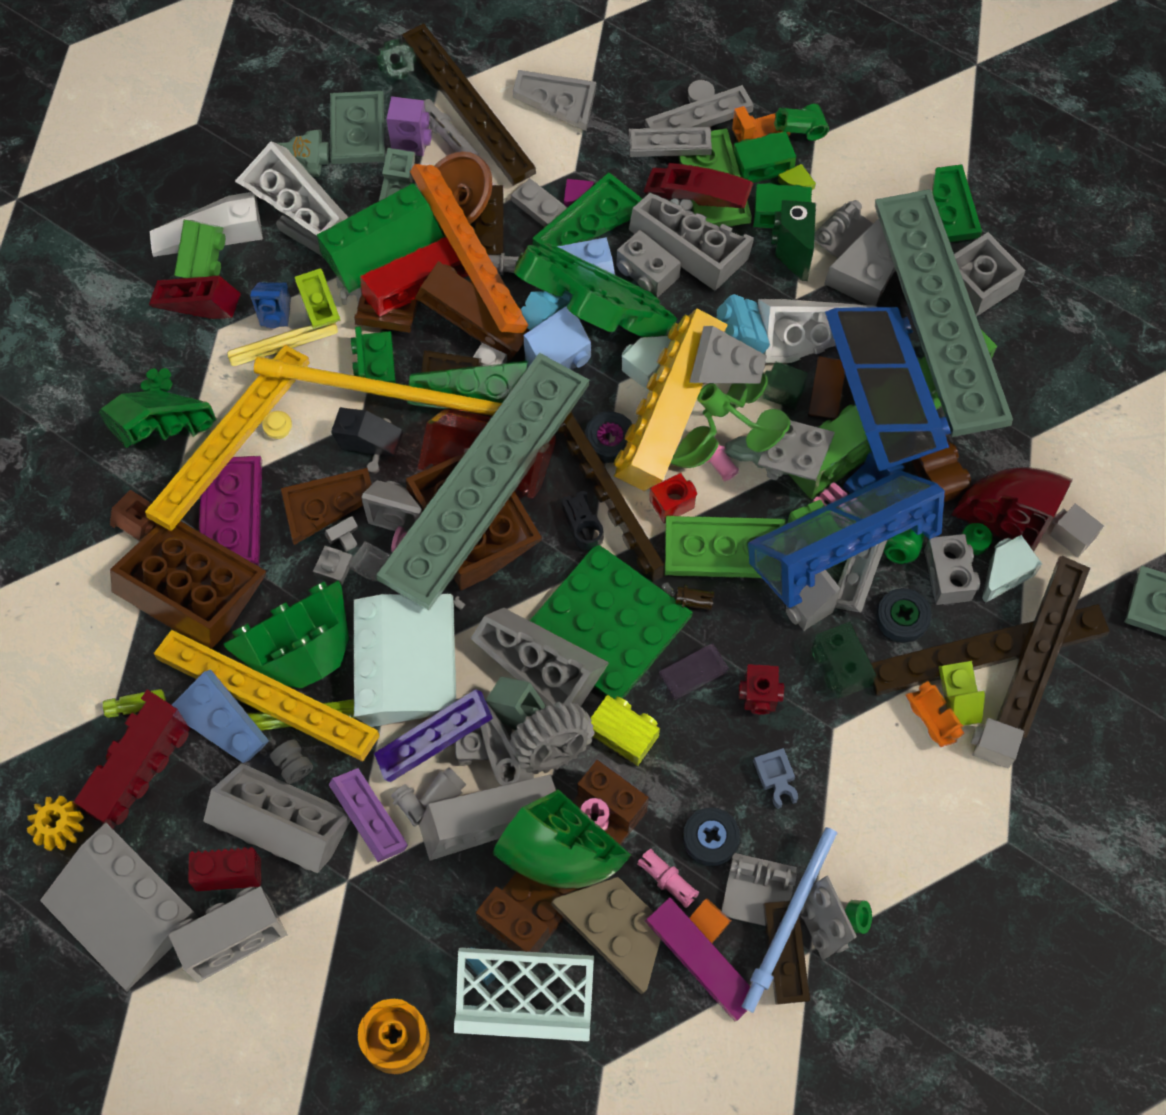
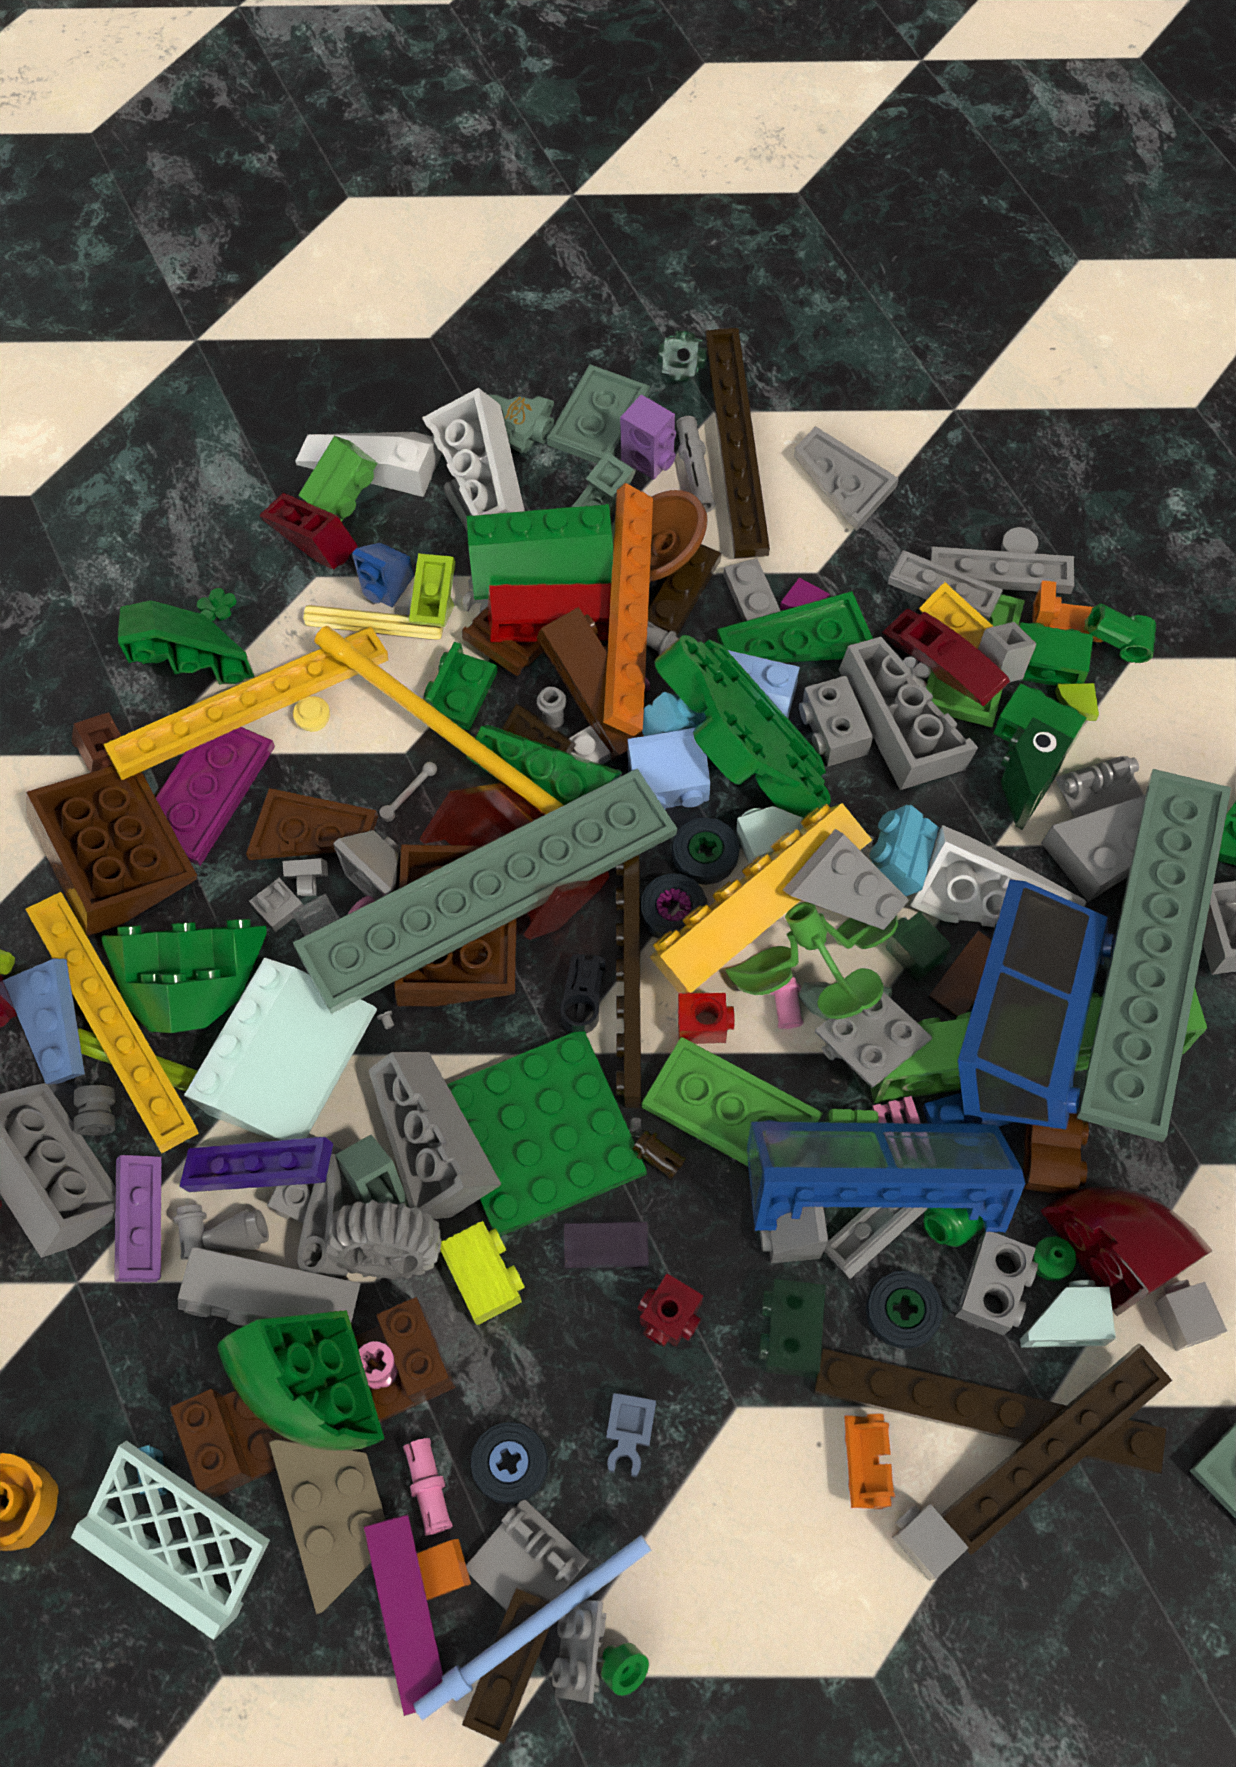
camera: 30 degrees right, 0 degrees up
(365, 433) = (397, 769): black slope -> none
(448, 339) = (551, 703): none -> light grey pin
(608, 376) = (698, 866): none -> black bush
(690, 154) = (956, 613): none -> yellow plate
(739, 162) = (1008, 649): none -> light grey brick
(962, 693) = (919, 1451): lime slope -> none

